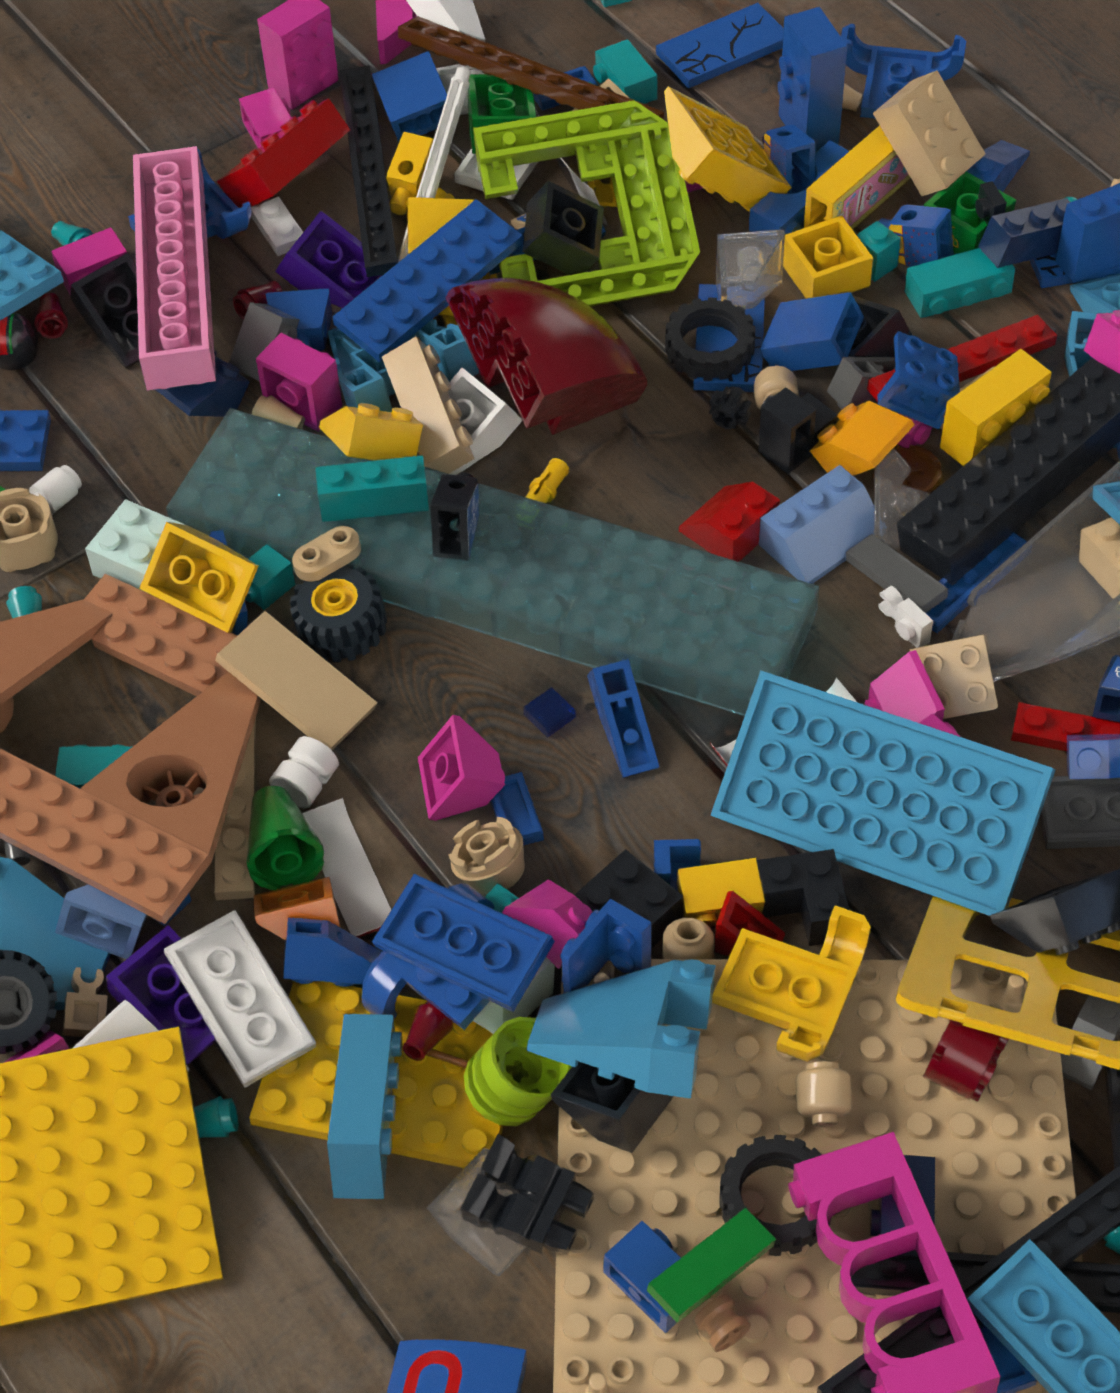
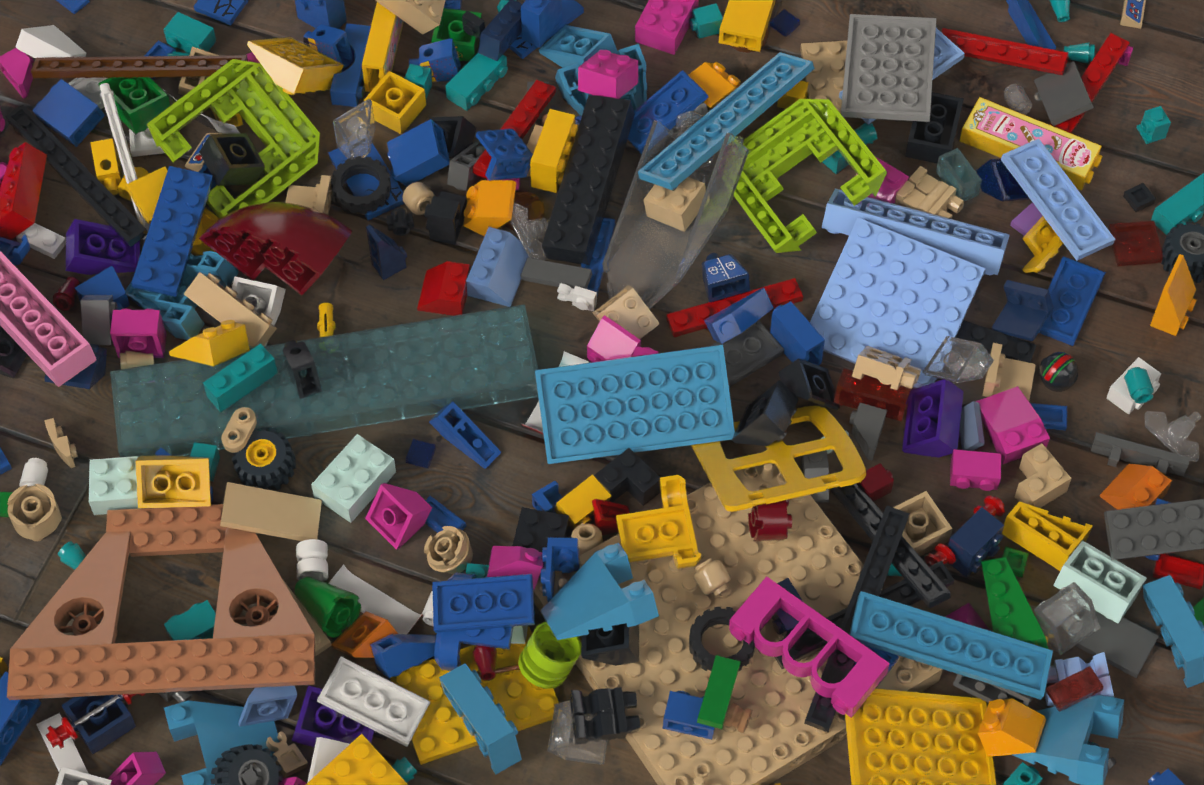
camera: 35 degrees left, 5 degrees up
(114, 461) = (61, 443): none -> tan slope
(428, 689) = (353, 478): none -> light aqua brick
(640, 330) = (313, 197): none -> tan bracket
(680, 432) = (384, 253): none -> dark blue slope

